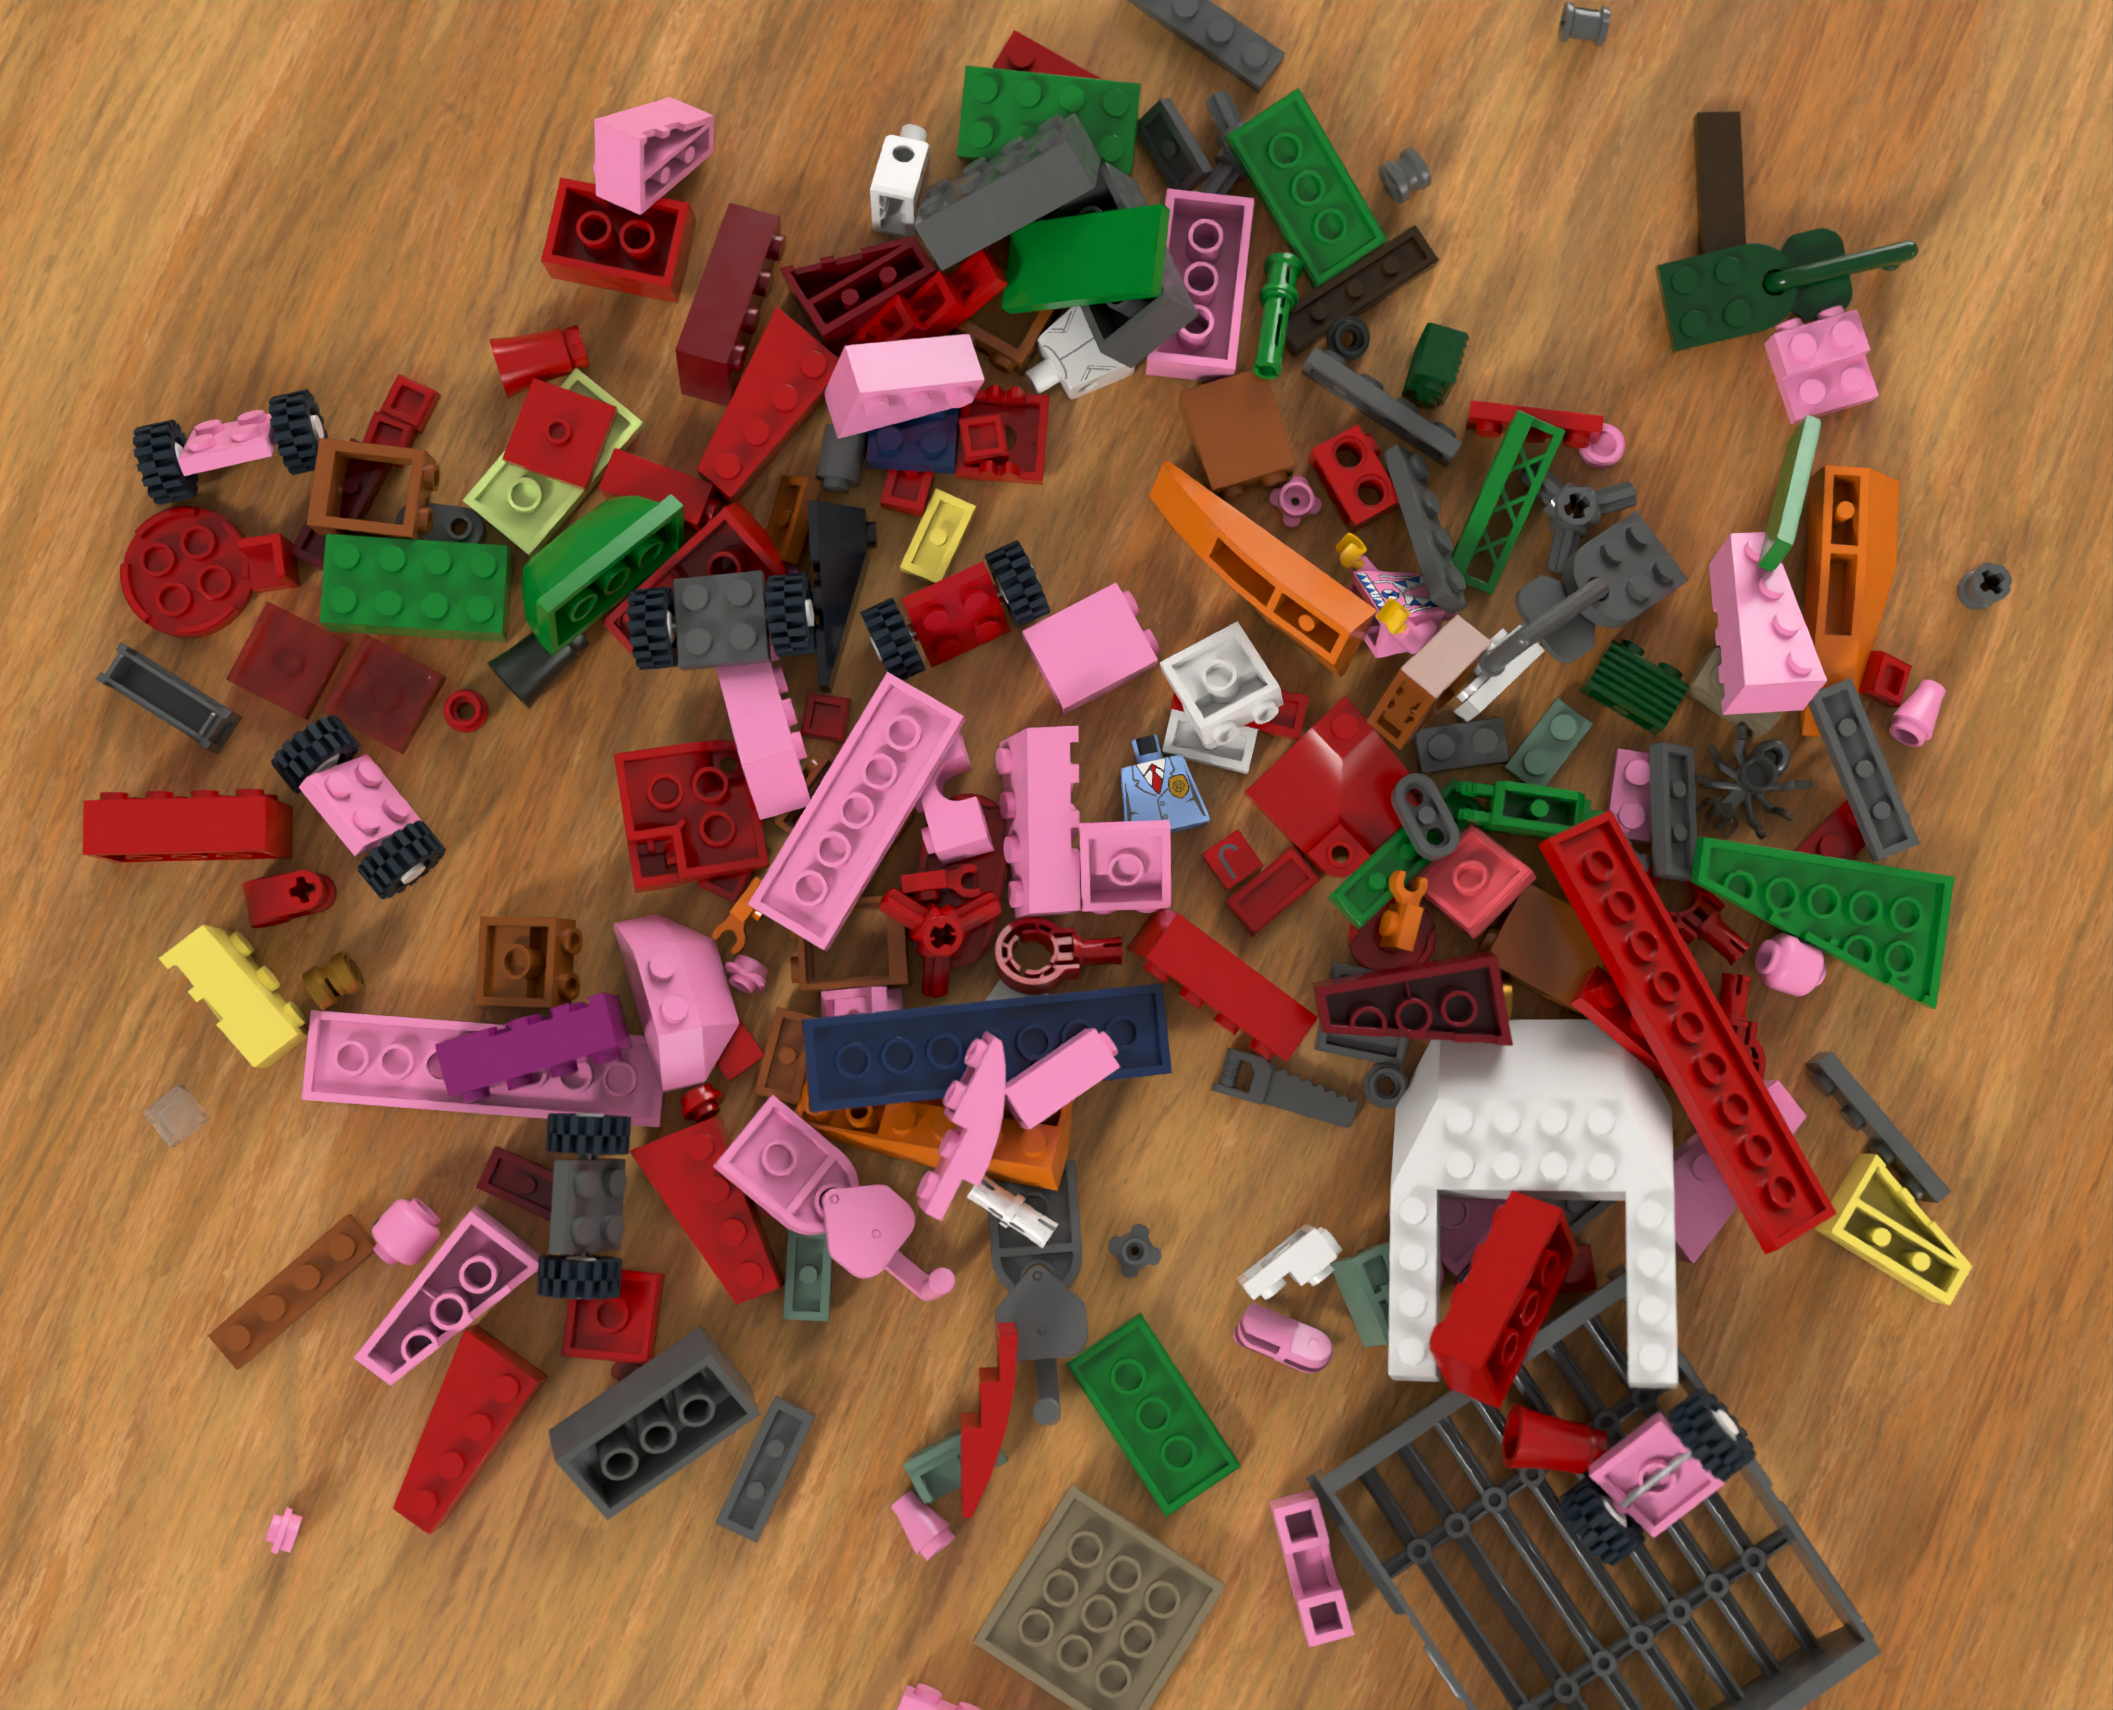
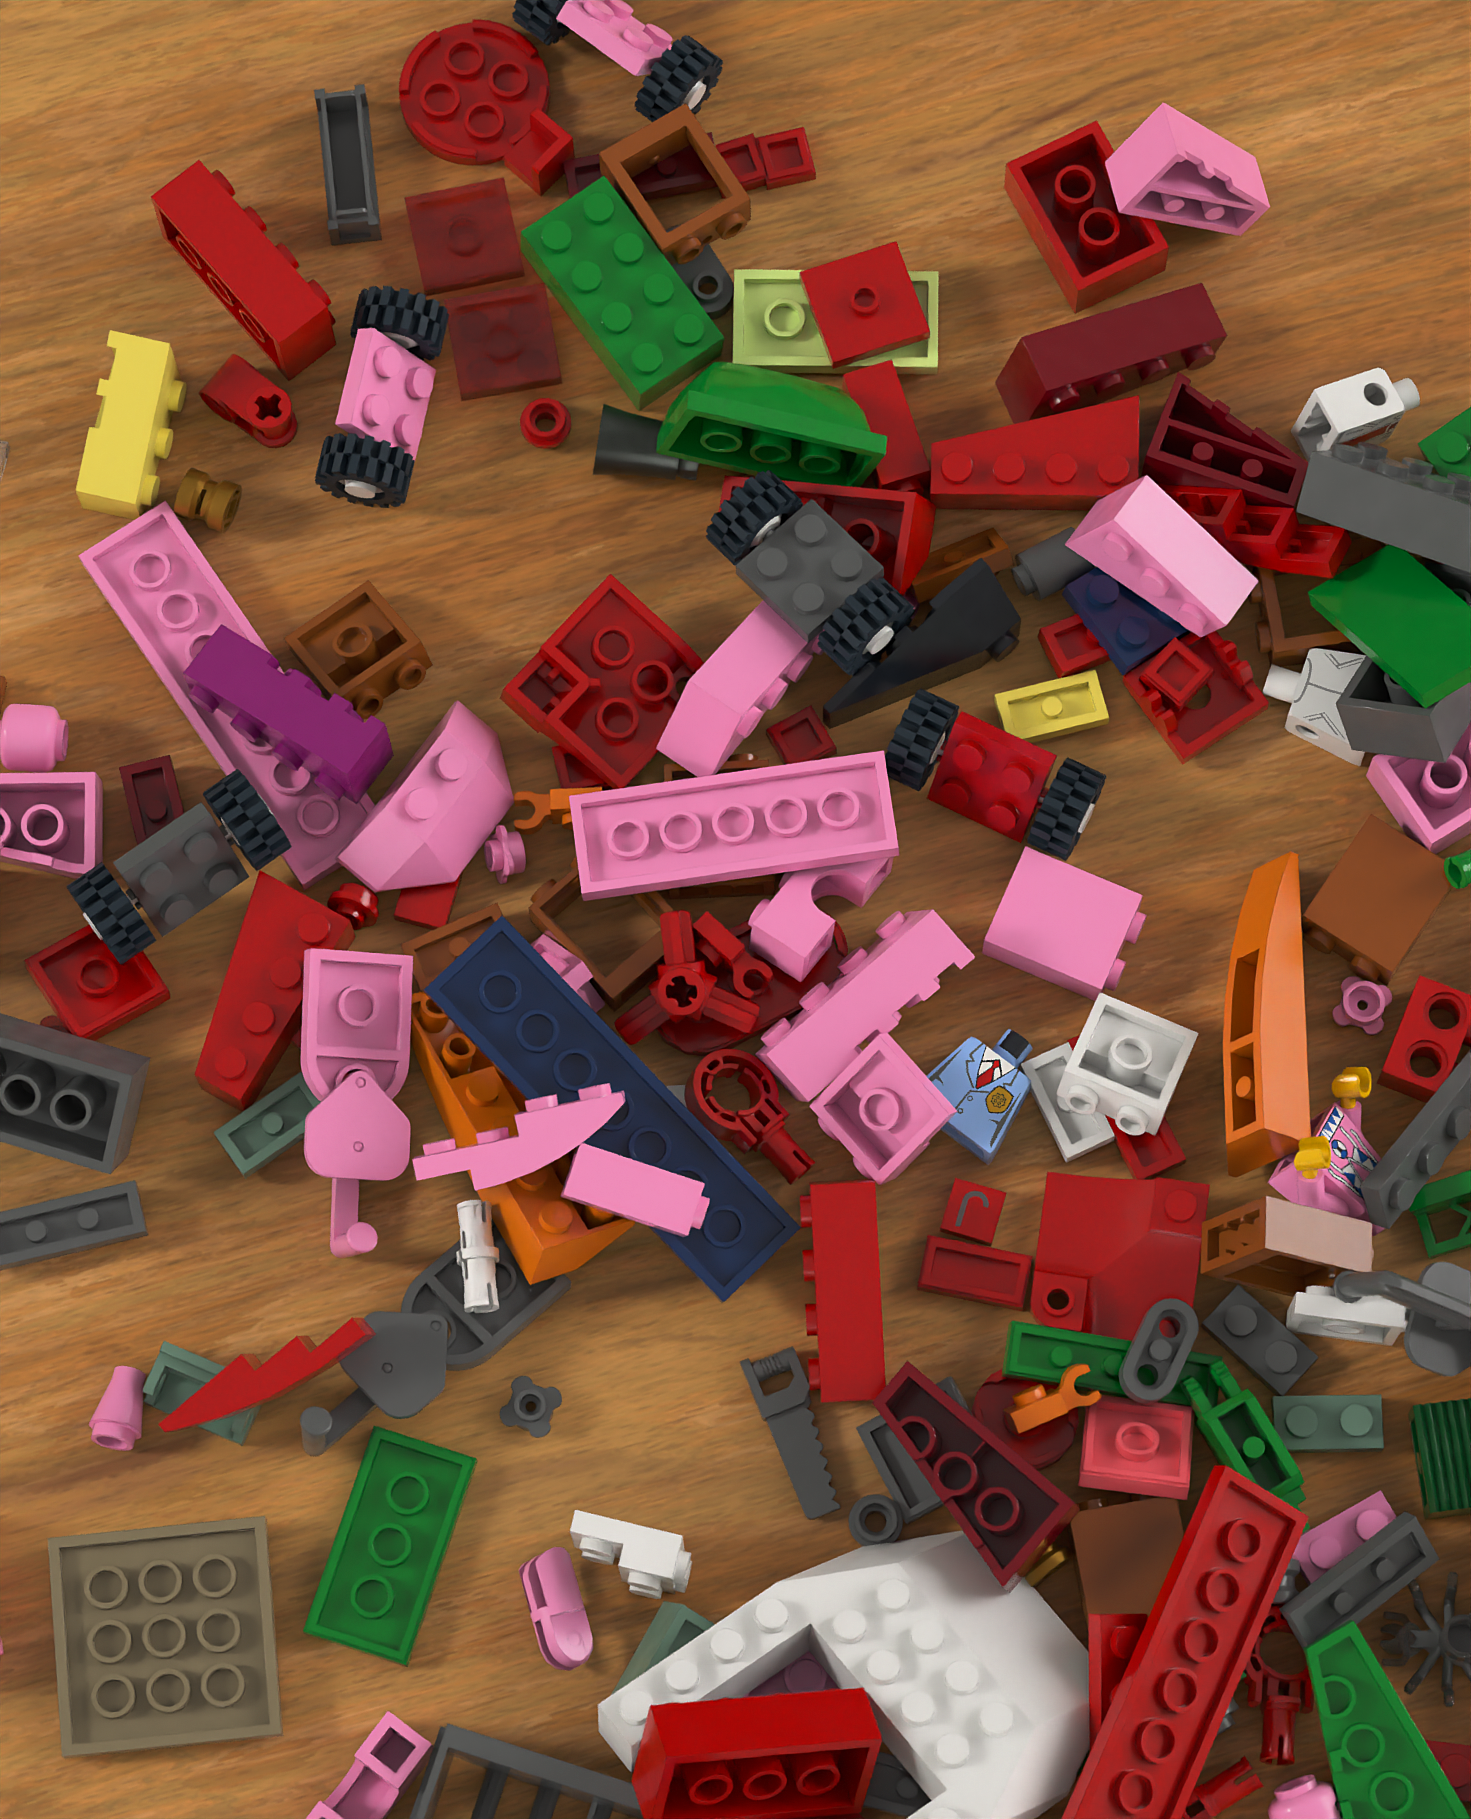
camera: 55 degrees right, 10 degrees down
(539, 356) = (920, 231): red plant -> none

